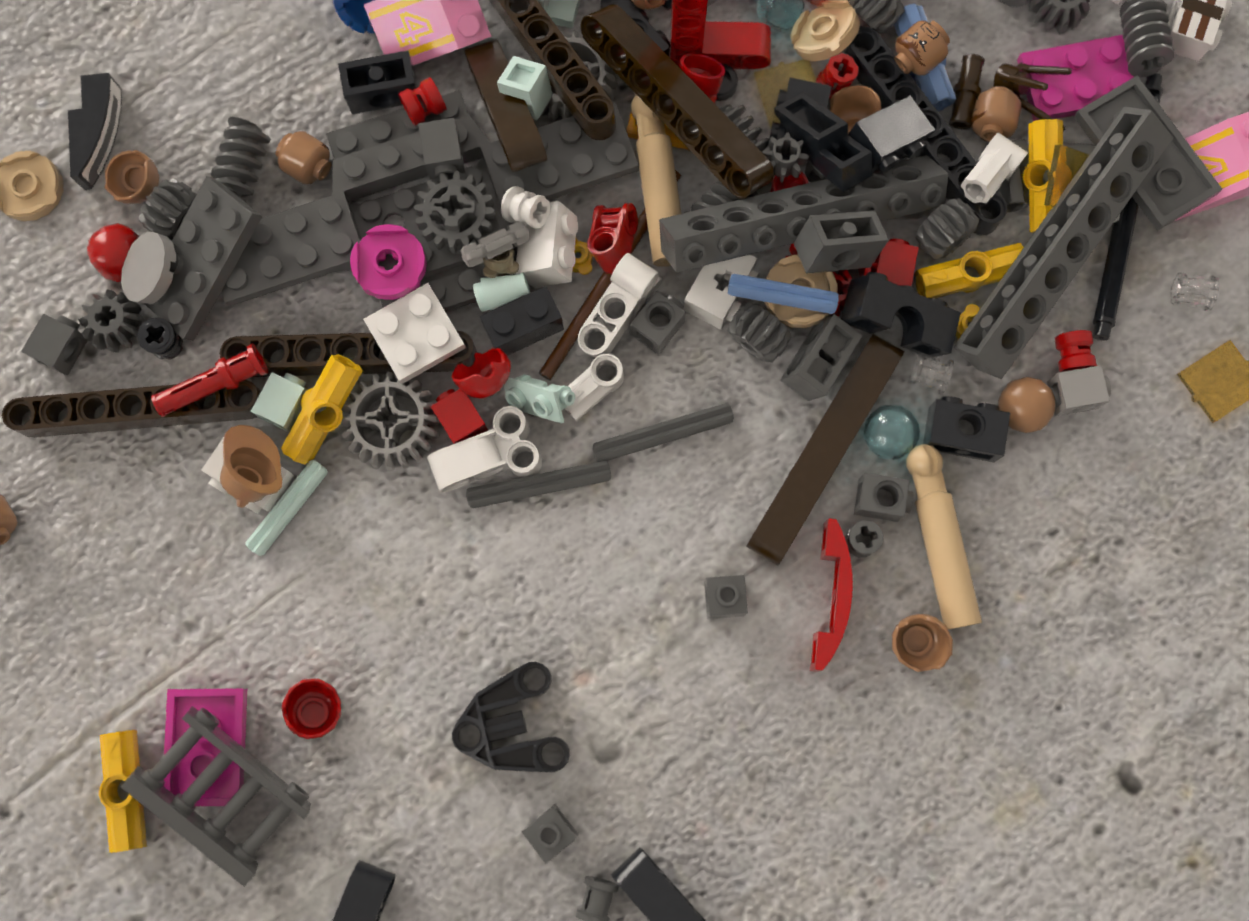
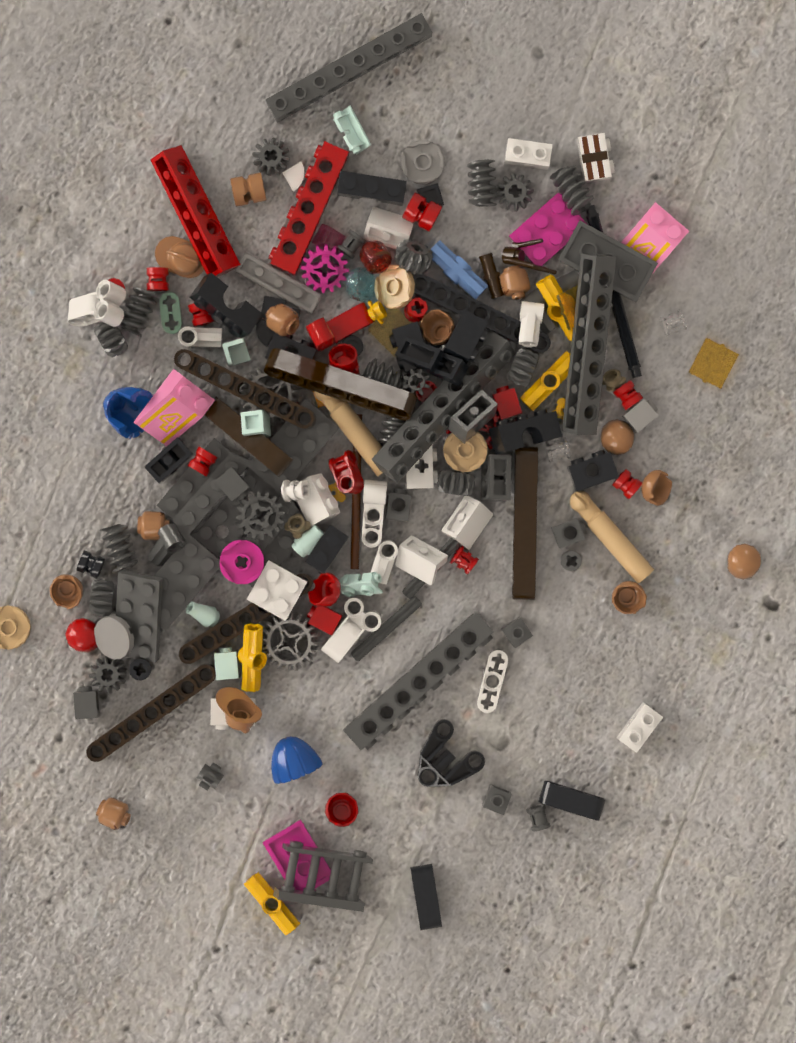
camera: 30 degrees left, 10 degrees up
(93, 128) = (27, 575): black slope -> none
(156, 546) = (210, 776): none -> dark grey gear
(185, 158) = (90, 564): none -> black wheel
(226, 374) = (193, 669): red pin -> none
(286, 508) = (262, 724): light aqua axle -> none
(288, 588) = (293, 759): none -> blue hair
(294, 312) = (204, 614): none -> light aqua cone
(305, 186) = (168, 543): none -> dark grey piece
(406, 602) = (355, 729): none -> dark grey brick
(495, 244) = (292, 520): light grey axle -> none
(644, 411) = (420, 559): none -> white panel
(674, 636) = (502, 666): none -> white beam
(707, 449) = (464, 560): none -> red bush
(744, 400) = (467, 521): none -> white panel
(781, 48) = (377, 311): none -> yellow plate
(783, 293) = (458, 460): medium blue axle -> none
(831, 851) = (639, 727): none -> white brick
(834, 549) = (580, 625): red slope -> none
(891, 431) = (554, 493): clear light blue hair -> none
(921, 48) = (455, 275): medium nougat head -> none
(1007, 476) = (627, 484): none -> red wheel
(1049, 504) = (656, 487): none -> medium nougat hair
(1064, 319) = (613, 380): none -> dark tan plate
(1123, 690) = (744, 561): none -> medium nougat hair

